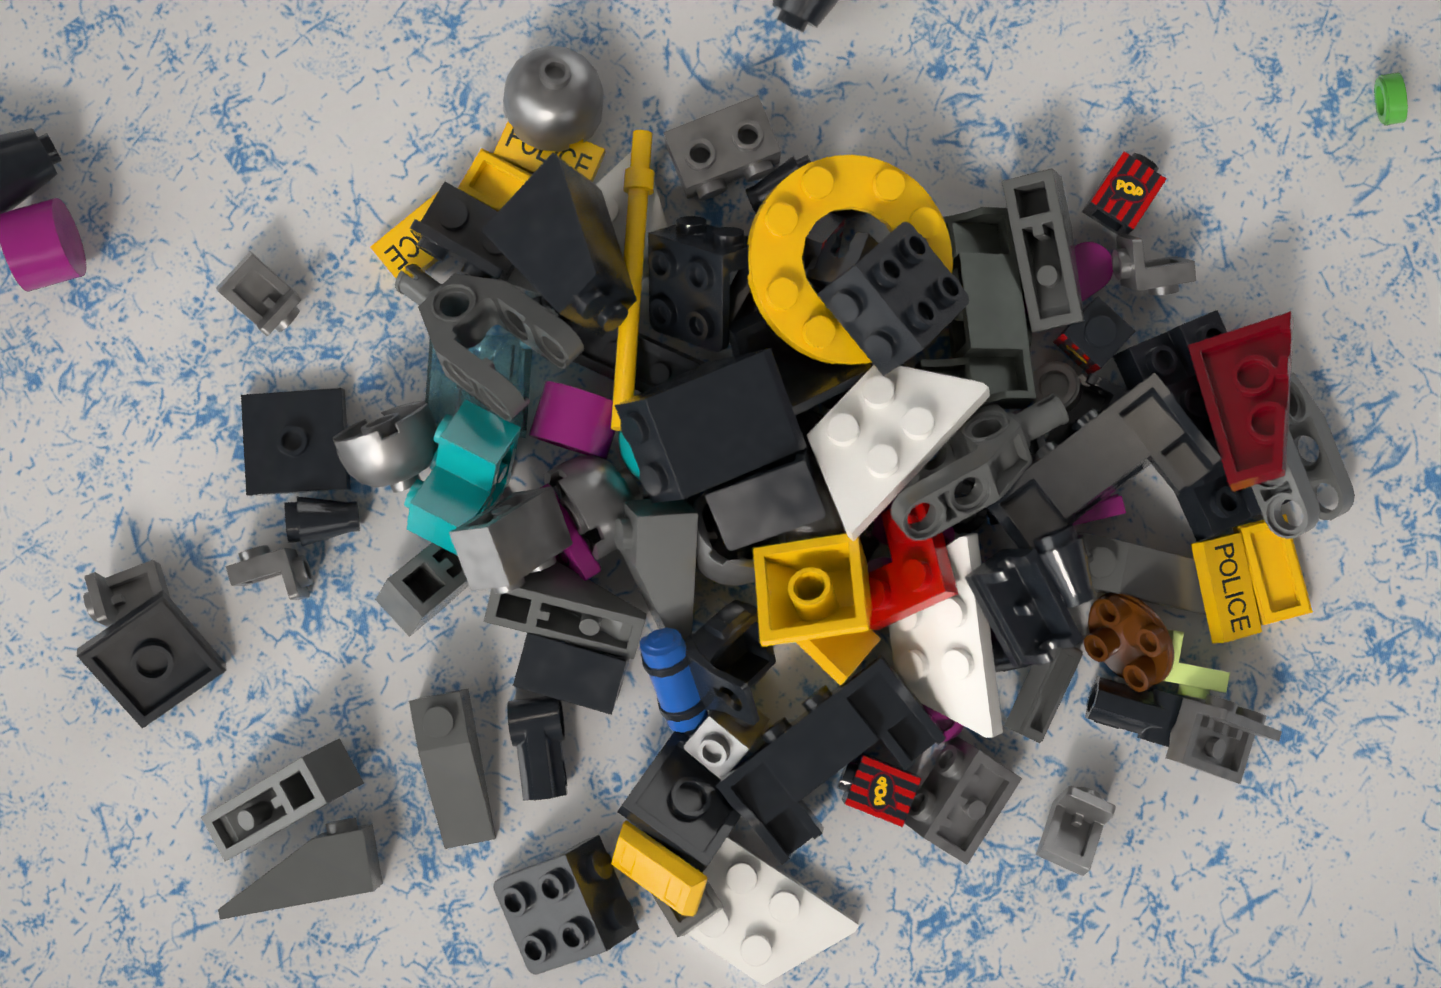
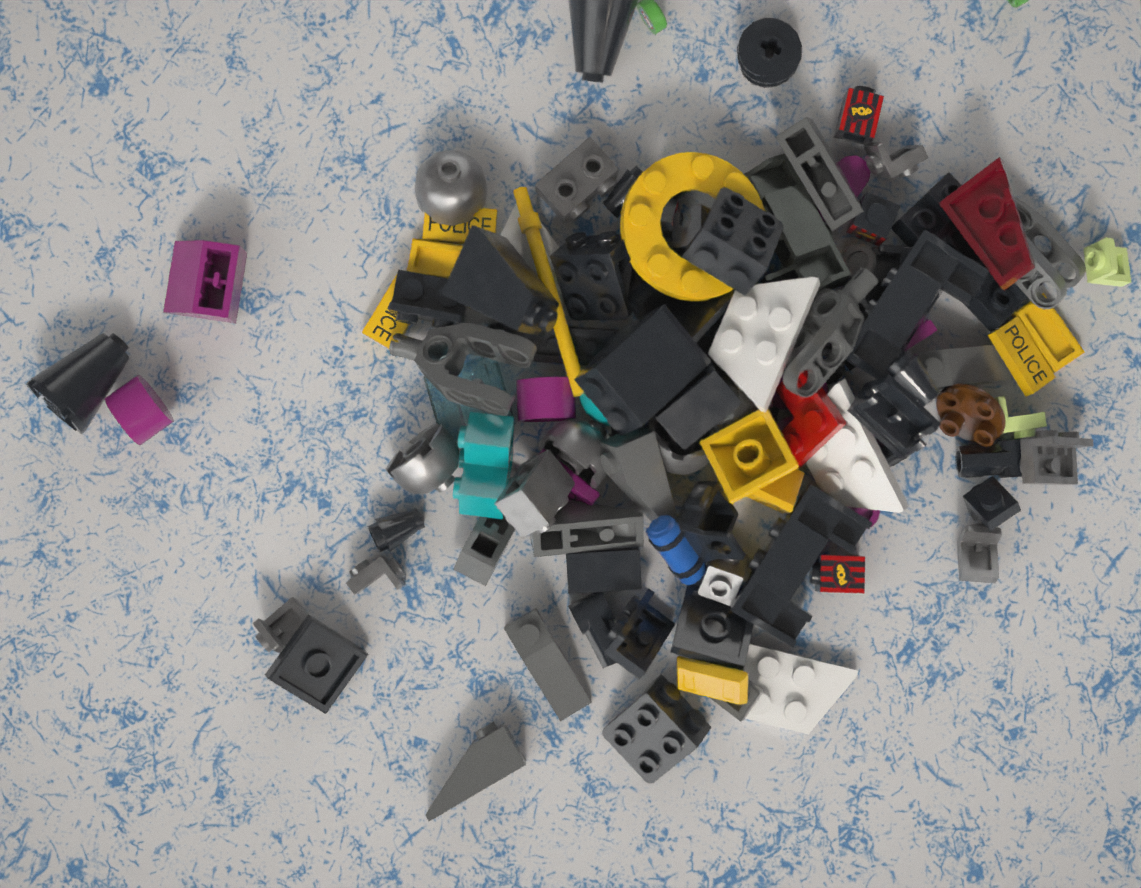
camera: 30 degrees left, 0 degrees up
(193, 108) = (205, 280): none -> magenta slope
(260, 295) = (300, 391): flat silver bracket -> none
(282, 799) = (439, 727): dark grey slope -> none
(292, 441) = (358, 483): black plate -> none
(585, 777) = (639, 636): none -> black bracket
(961, 799) = (896, 561): flat silver bracket -> none
(1020, 49) = (786, 54): none -> black piece
(1043, 694) = (925, 471): dark grey tile -> none
(1114, 768) = (991, 503): none -> black bracket
(1384, 506) = (1107, 263): none -> yellowish green bracket

